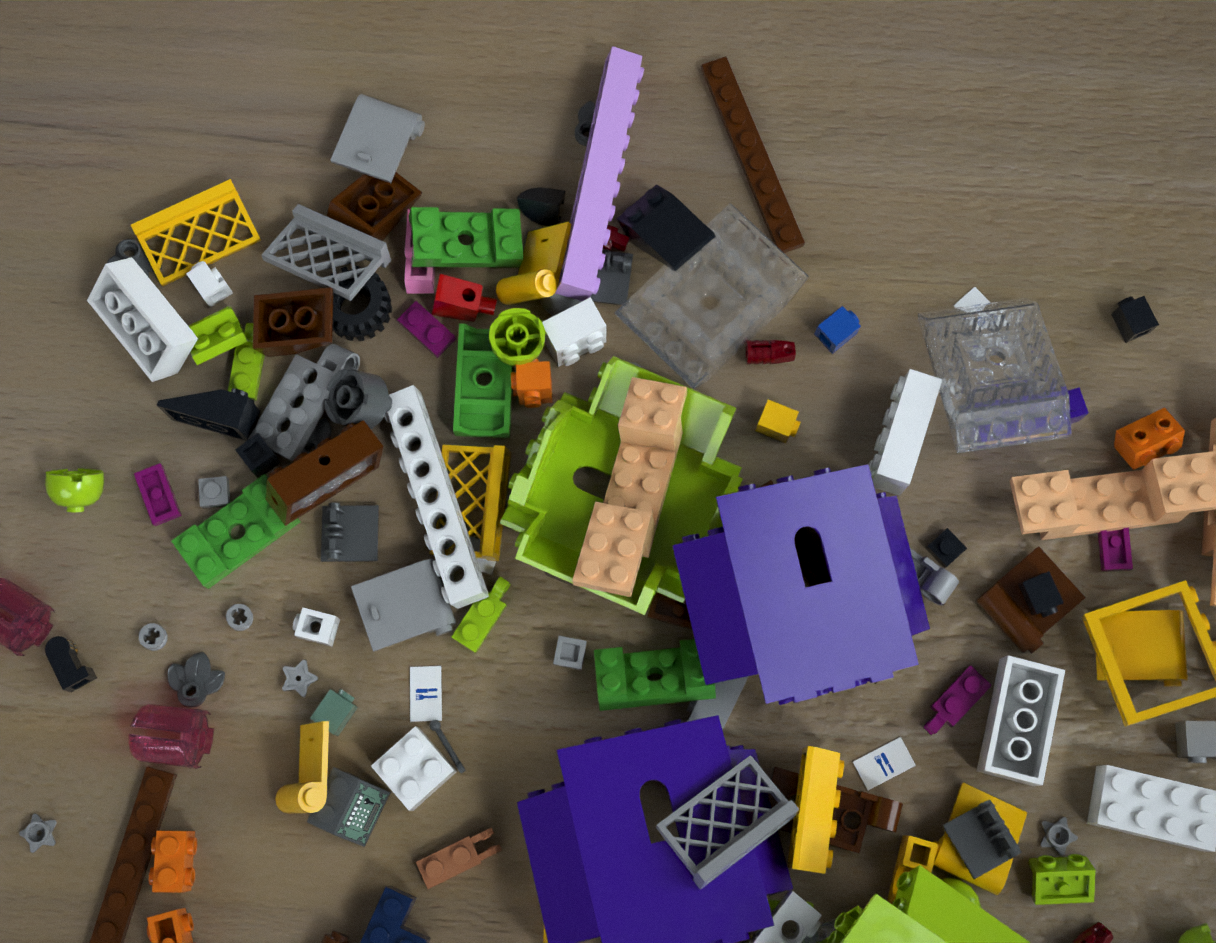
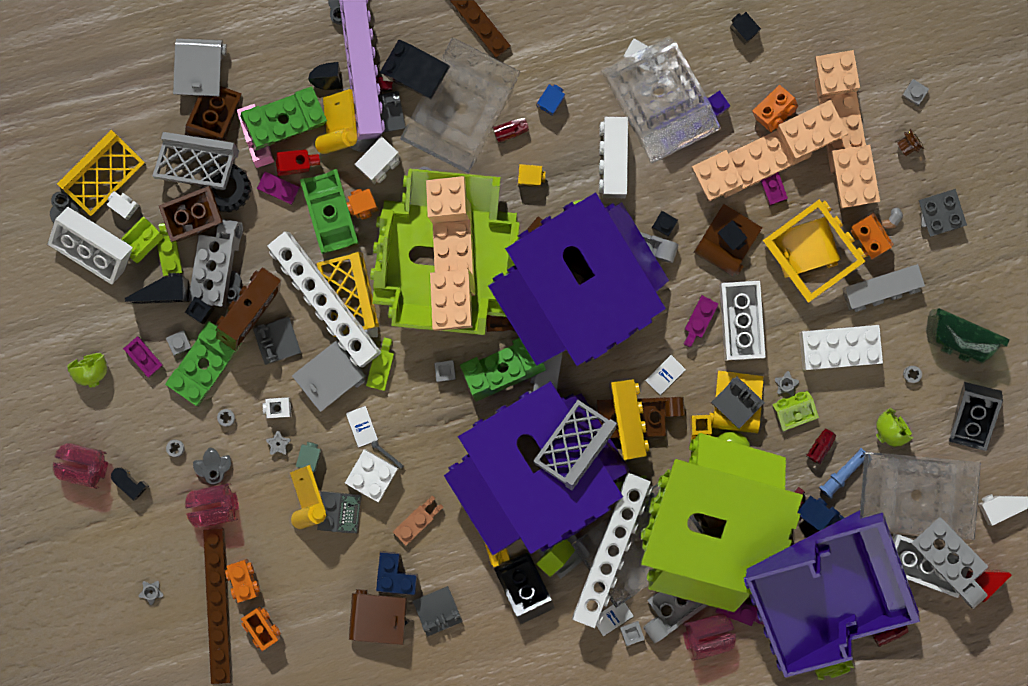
camera: 15 degrees left, 10 degrees up
(357, 398) = (251, 252): dark grey brick -> none
(517, 336) = (342, 179): lime cylinder -> none

